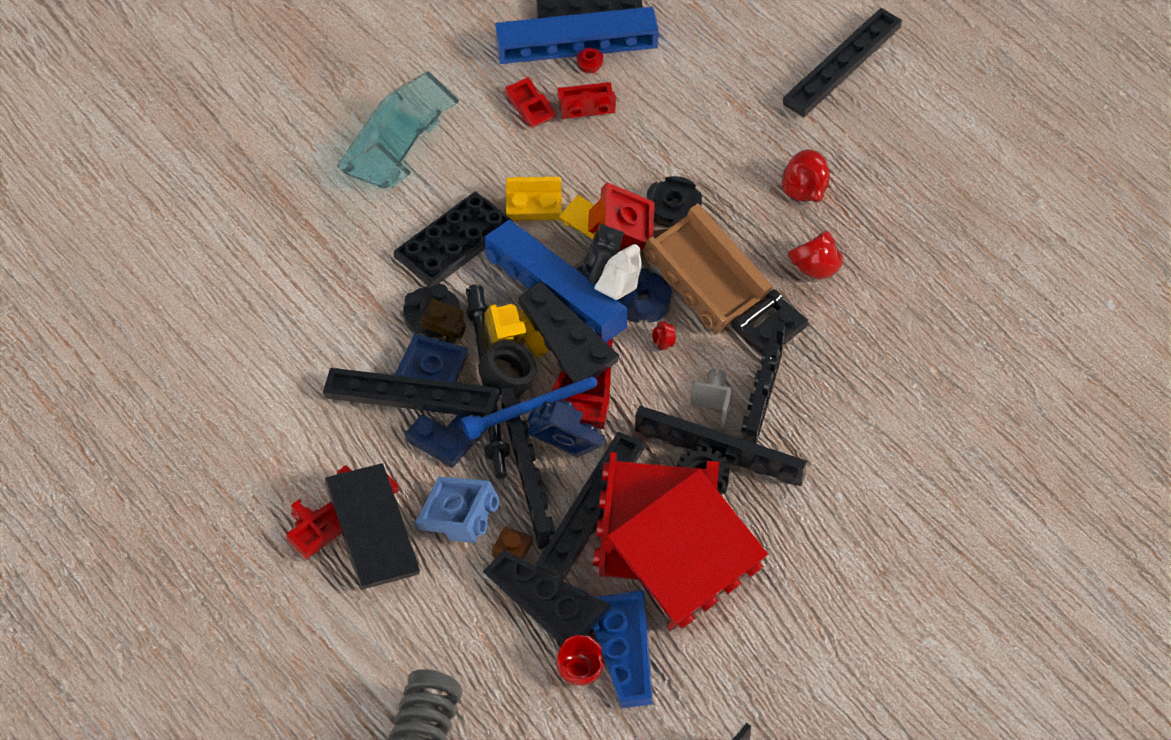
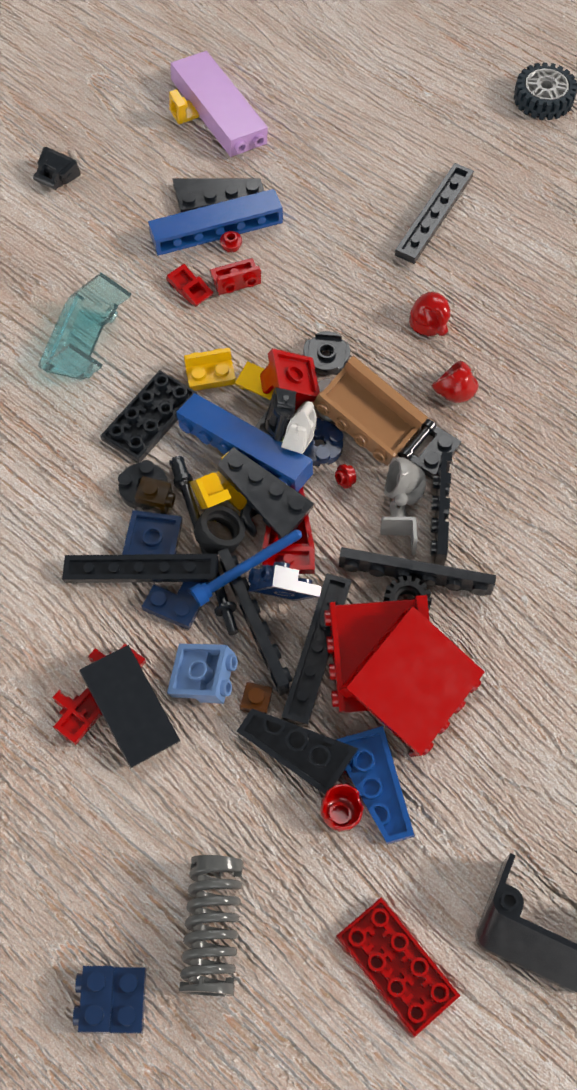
camera: 10 degrees left, 10 degrees up
(543, 358) = (246, 515): none -> black hair
(730, 350) = (404, 481): none -> light grey piece

